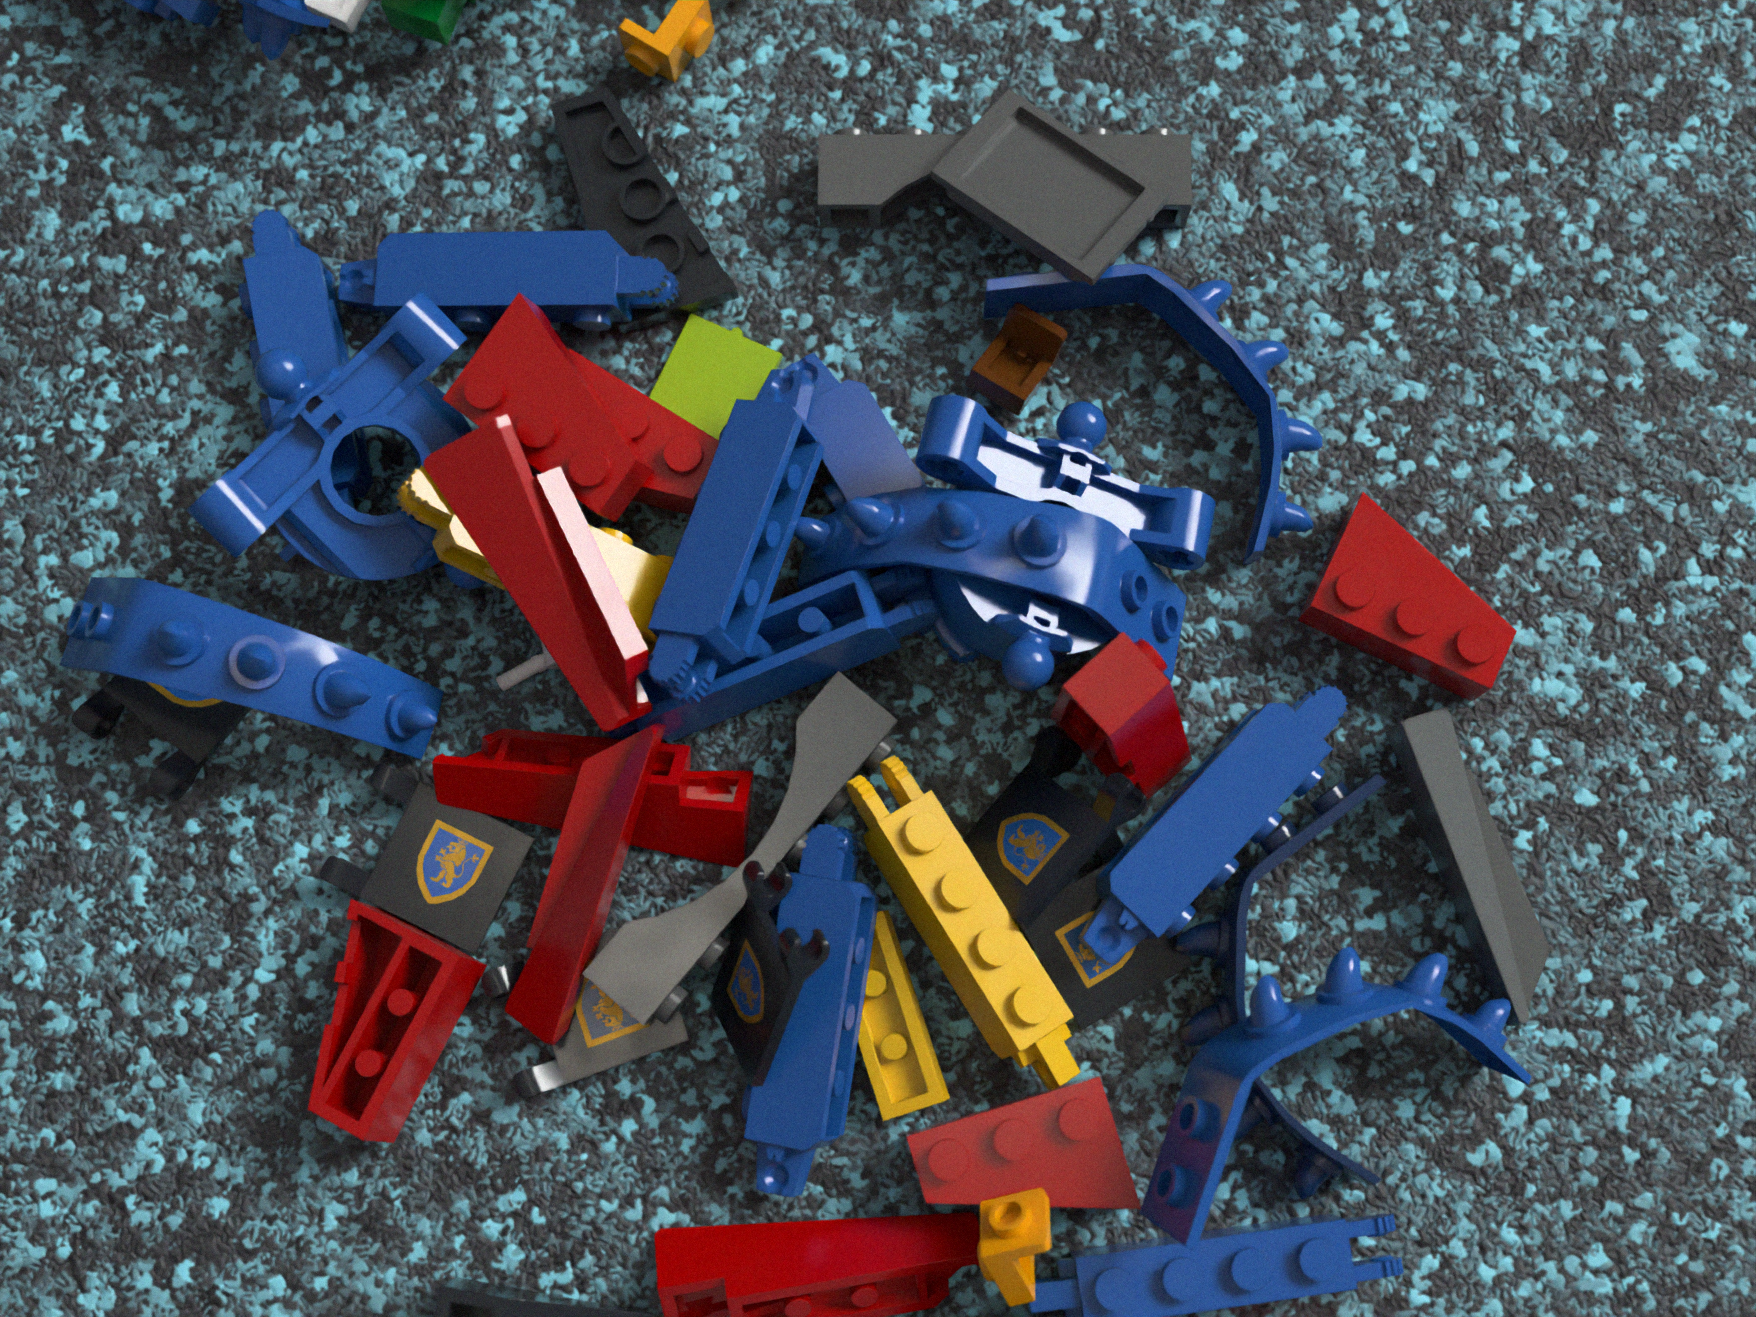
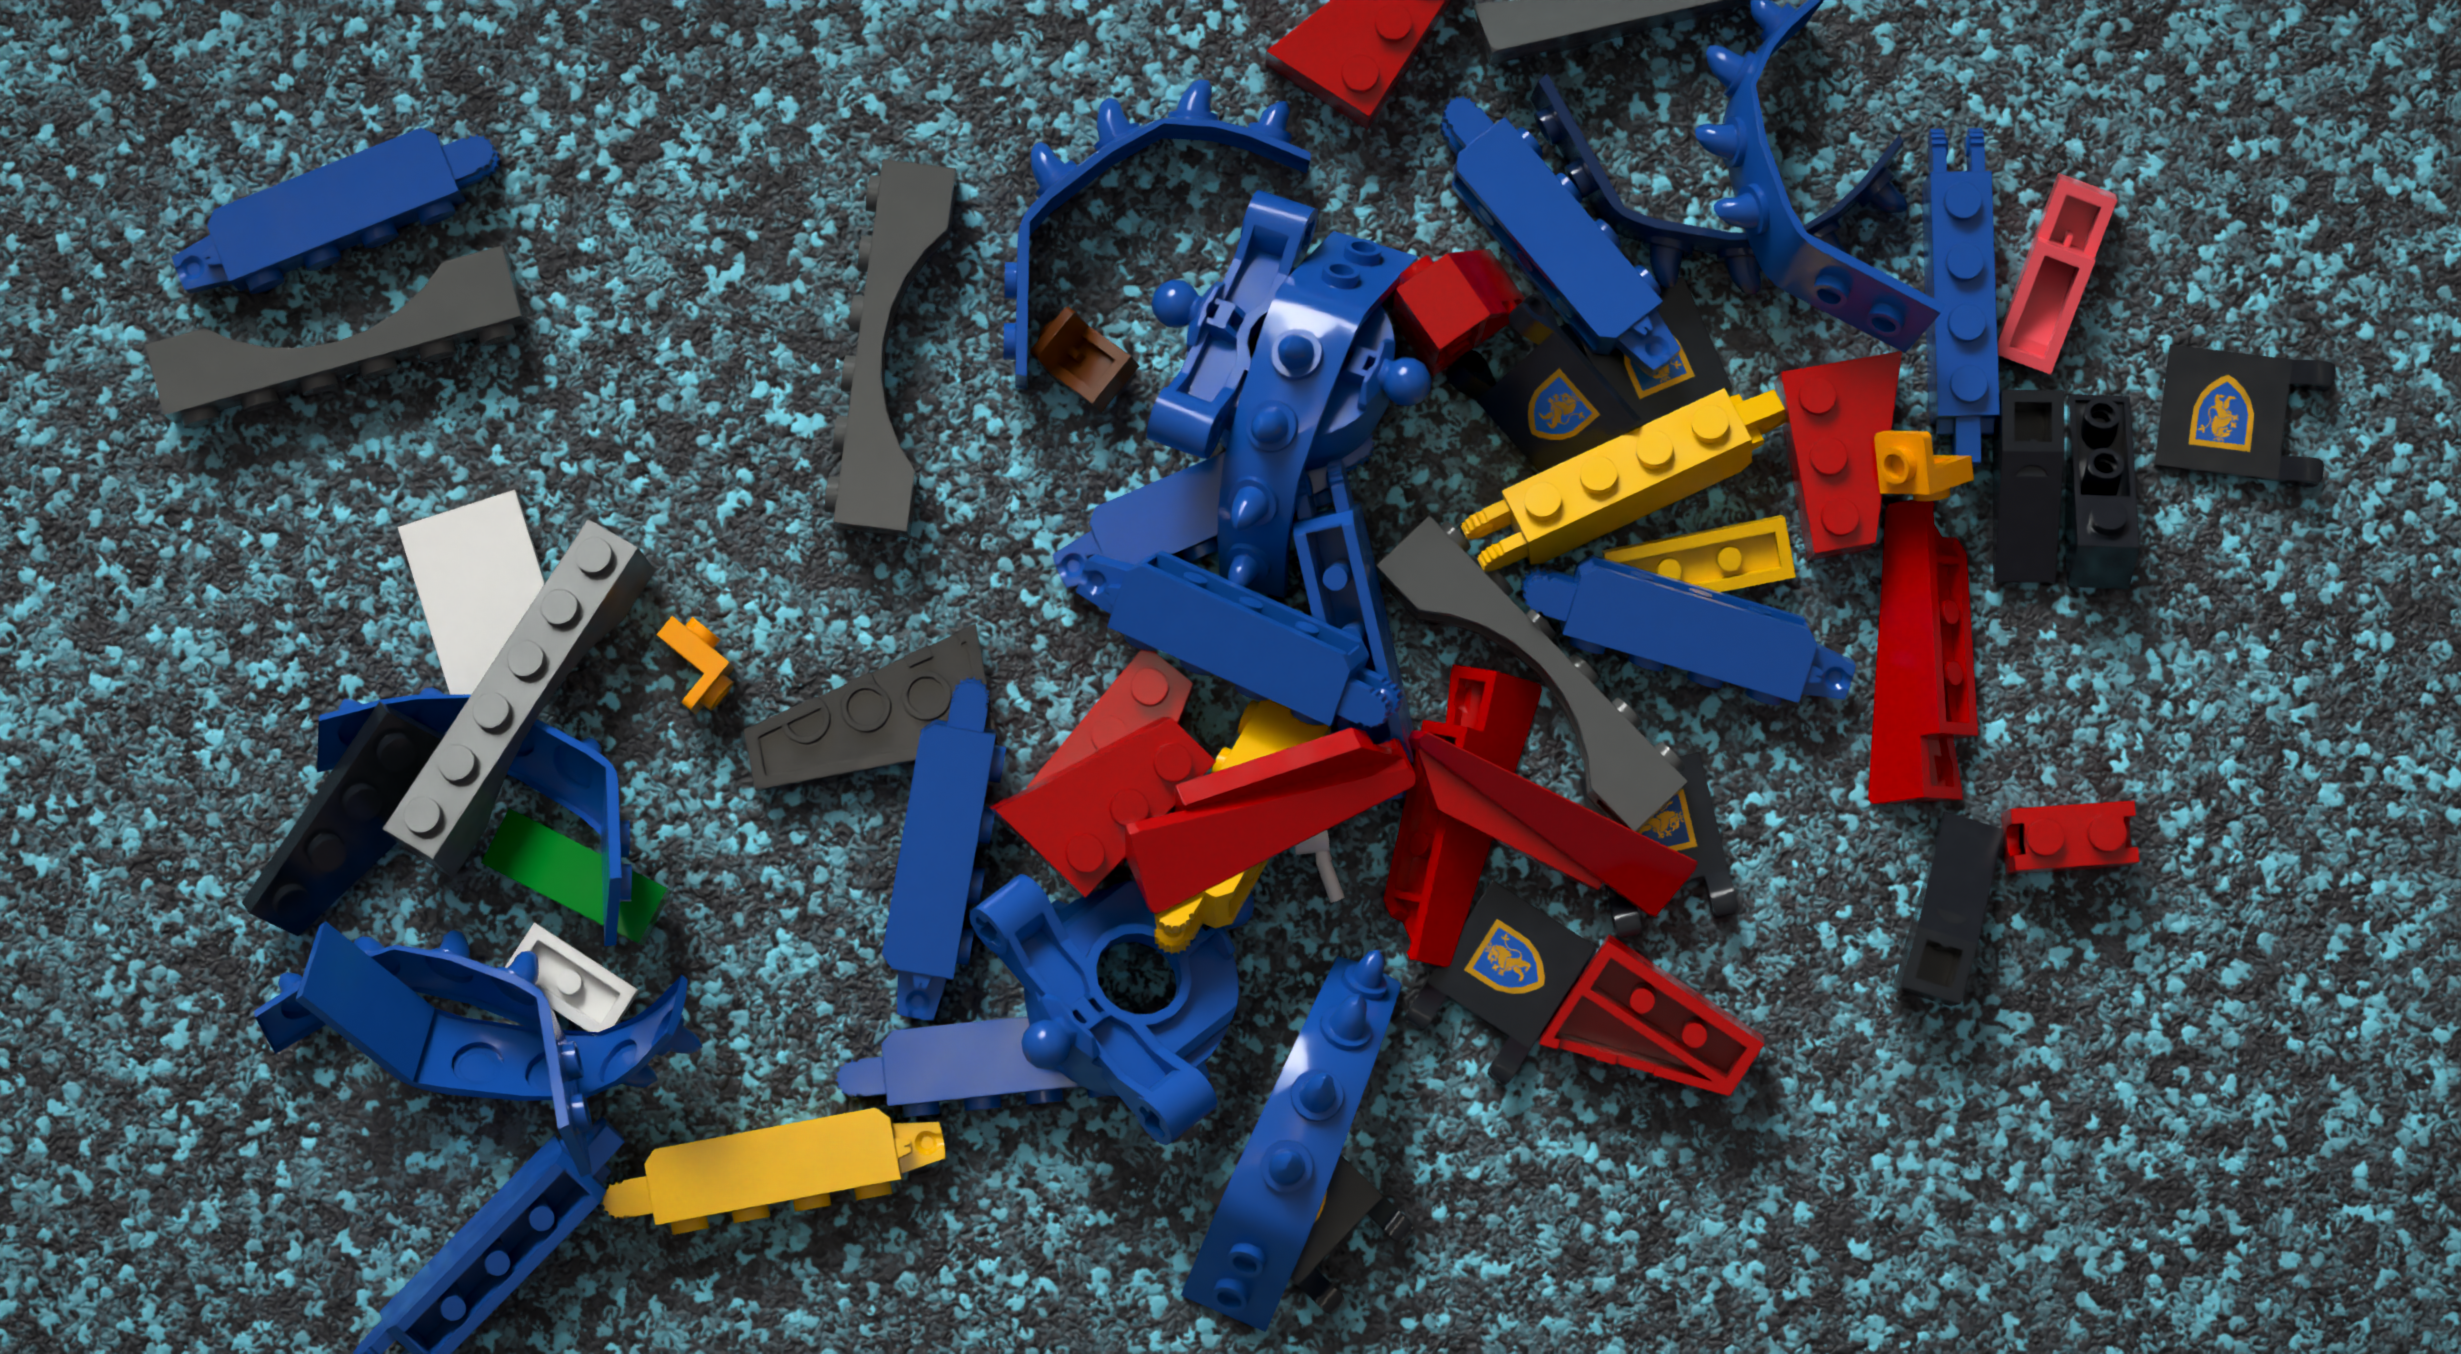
camera: 90 degrees left, 5 degrees up
(184, 171) = (775, 1166): none -> yellow hinge
(710, 372) = (1058, 660): lime piece -> none
(763, 973) = (1661, 670): black flag -> none
(1048, 188) = (930, 302): dark grey piece -> none

